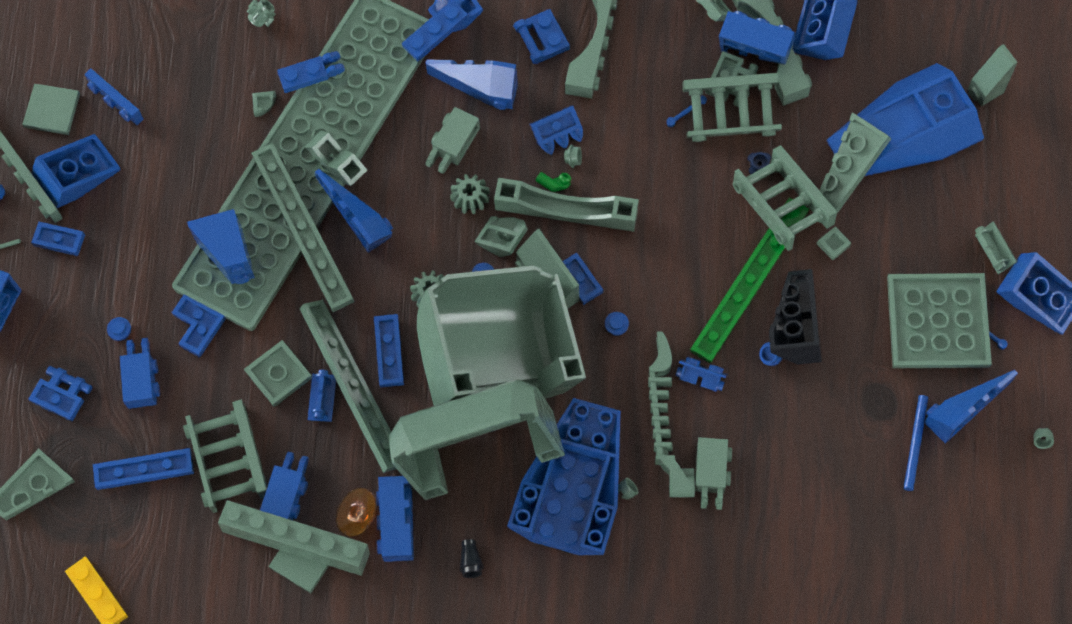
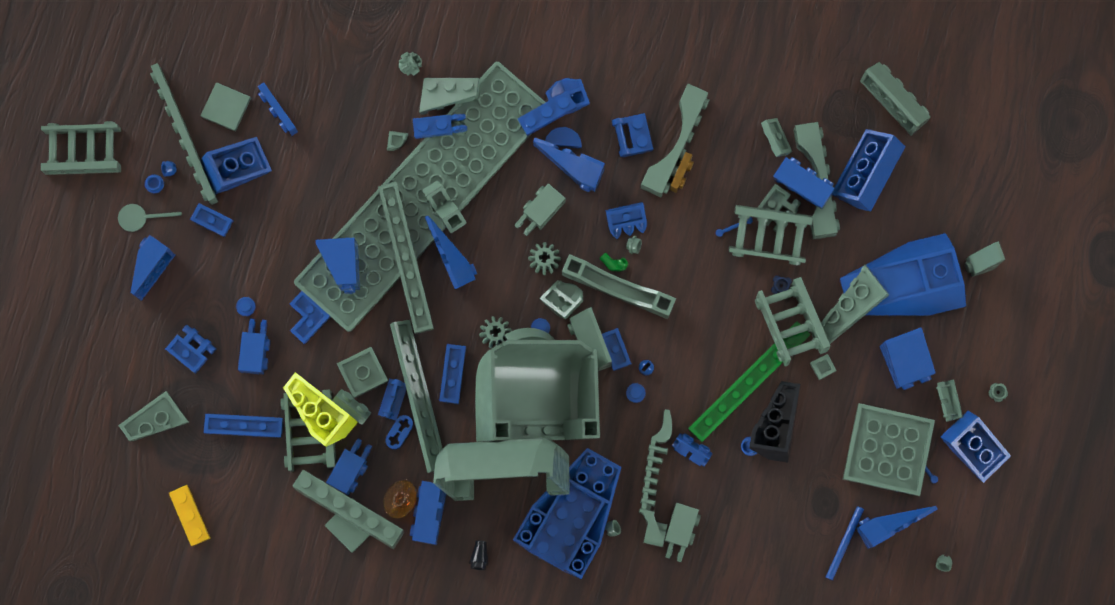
camera: 10 degrees right, 10 degrees up
(235, 427) = (321, 415): none -> neon yellow wedge
(281, 418) = (351, 406): none -> sand green plate
(308, 34) = (447, 91): none -> sand green wing
(333, 432) = (403, 435): none -> blue beam
(463, 52) = (564, 138): none -> blue tile
(608, 71) = (679, 180): none -> pearl gold plate
(626, 295) = (649, 370): none -> blue hinge
(932, 209) = (908, 359): none -> blue slope
(1051, 220) = (998, 387): none -> sand green plate

